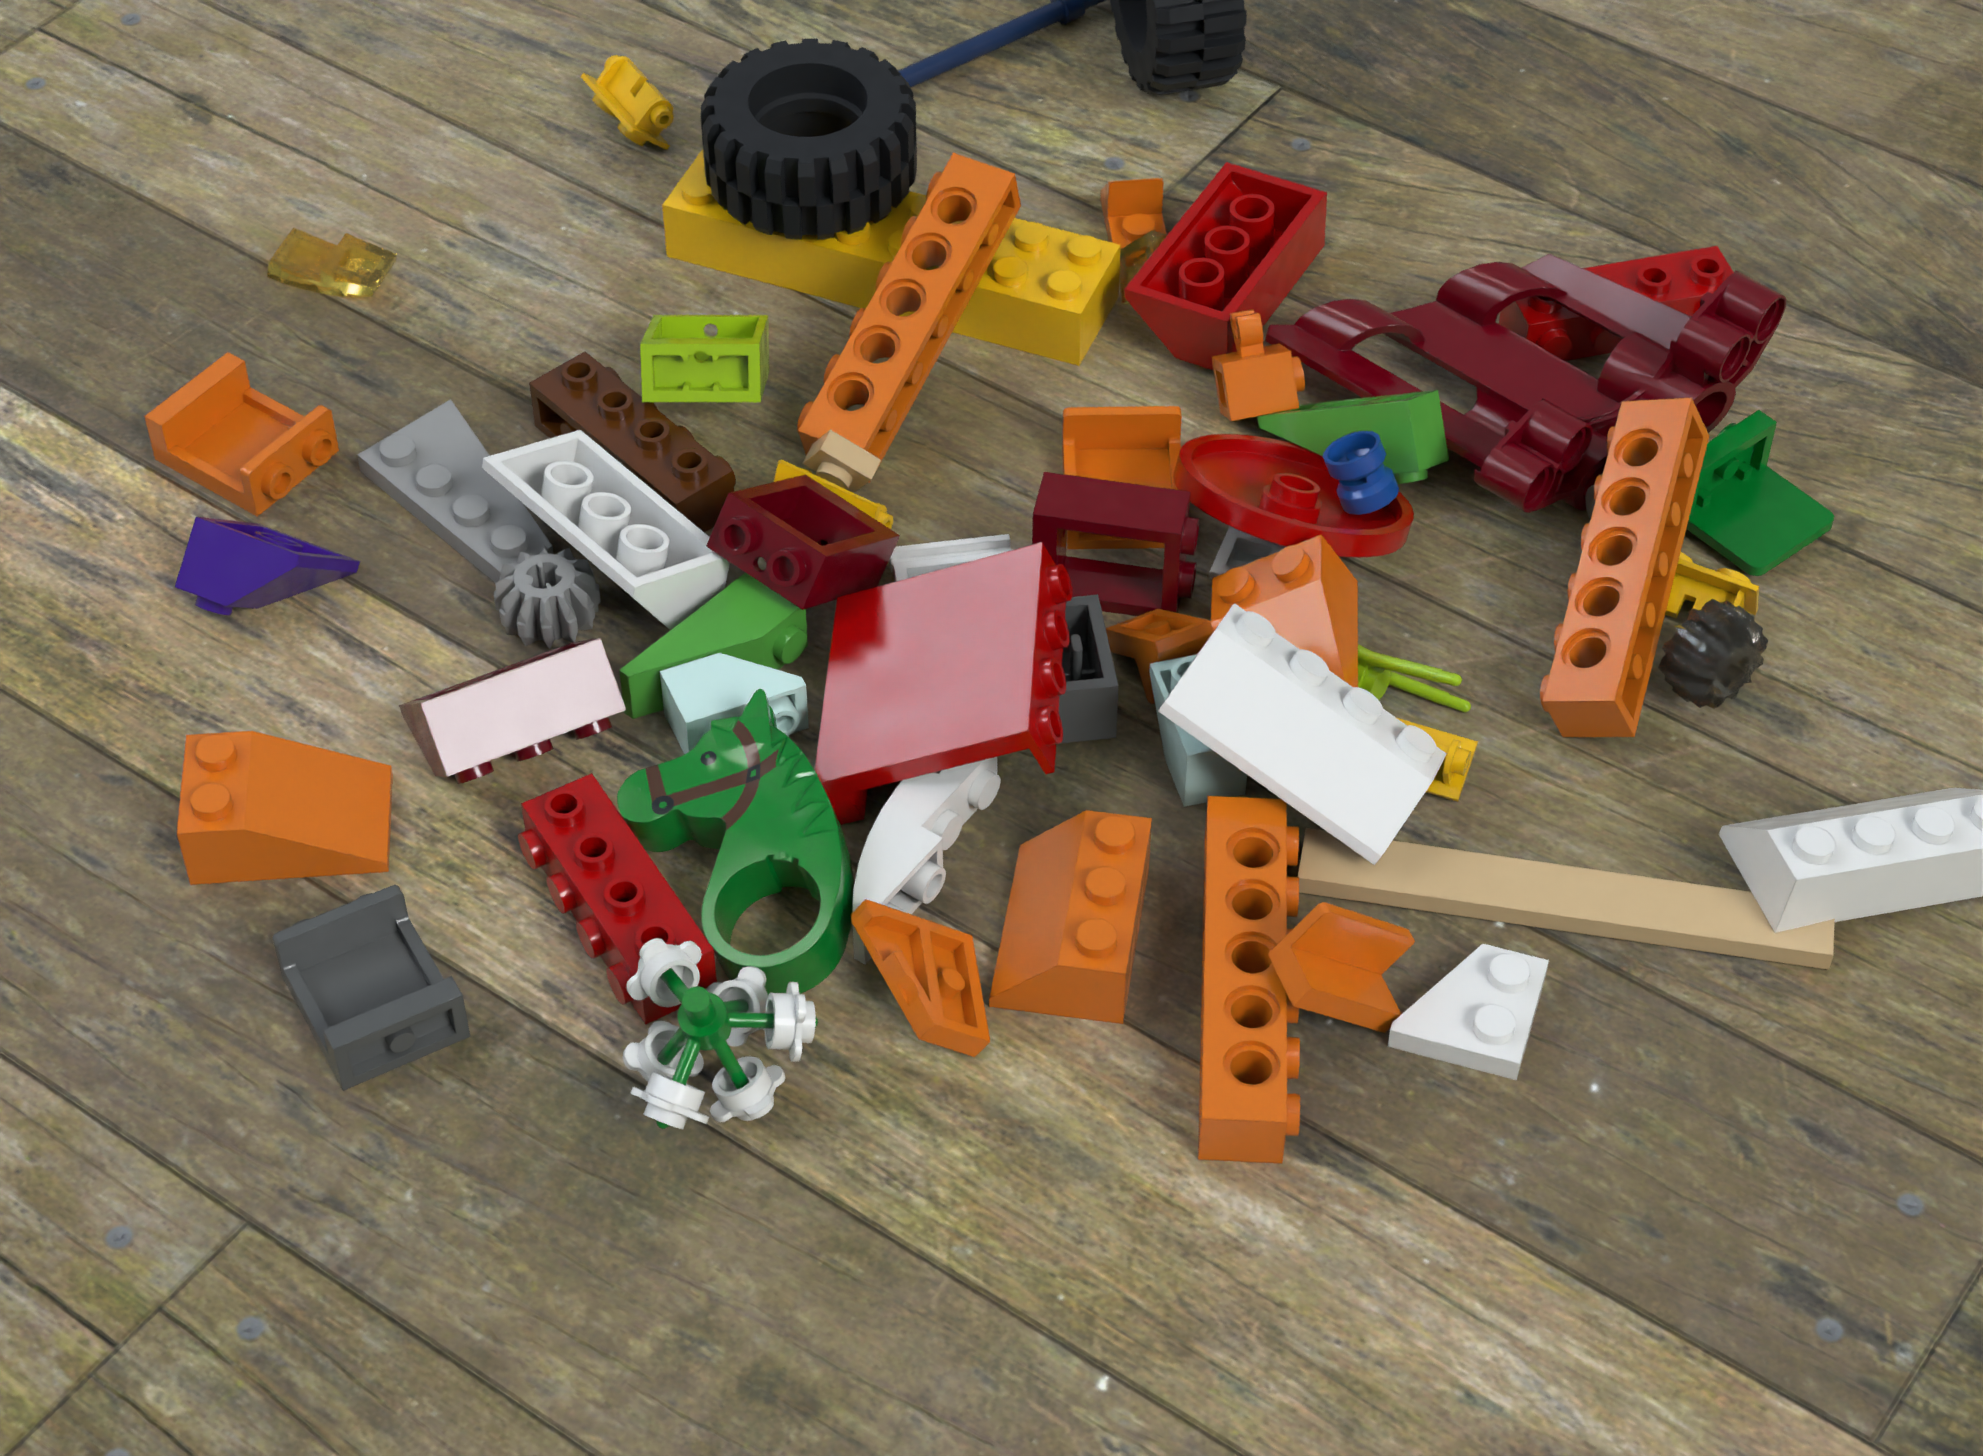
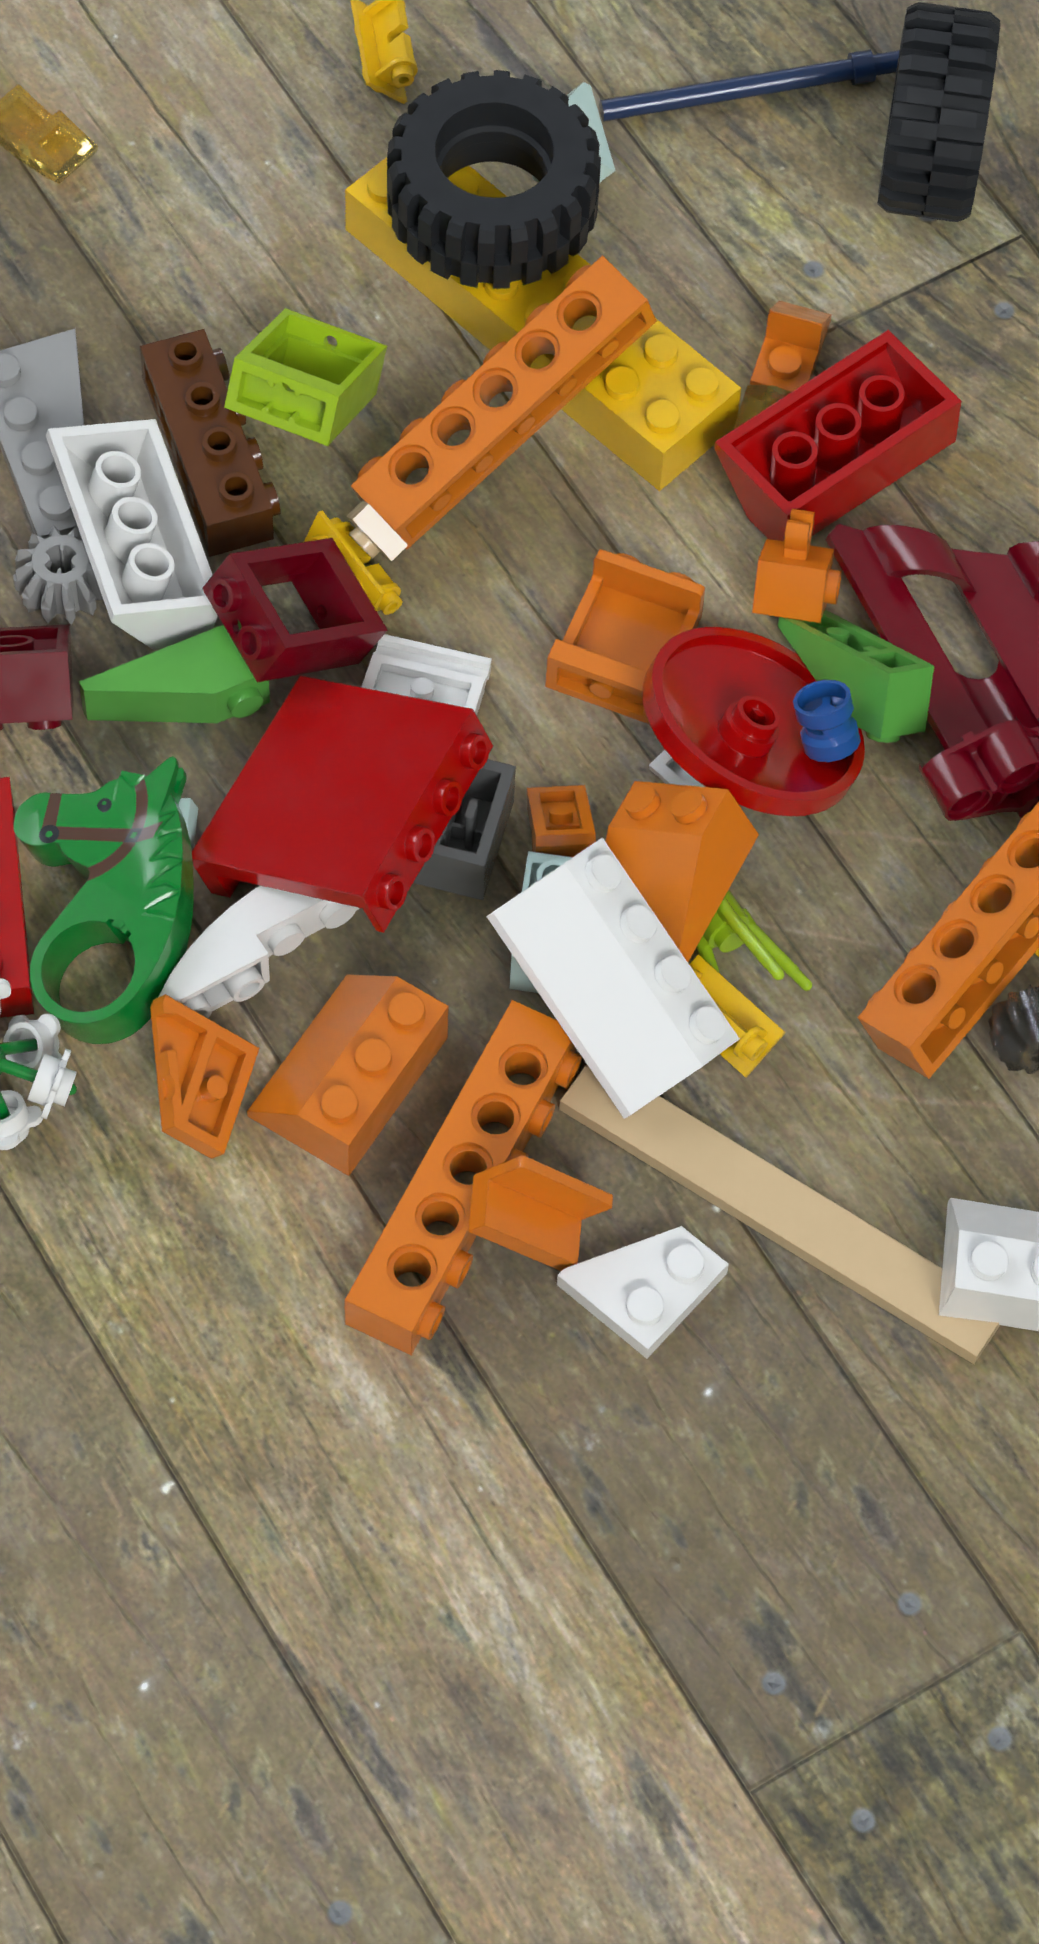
camera: 20 degrees right, 15 degrees up
(721, 689) = (159, 727): light aqua slope -> none
(1122, 512) = (563, 714): dark red window -> none

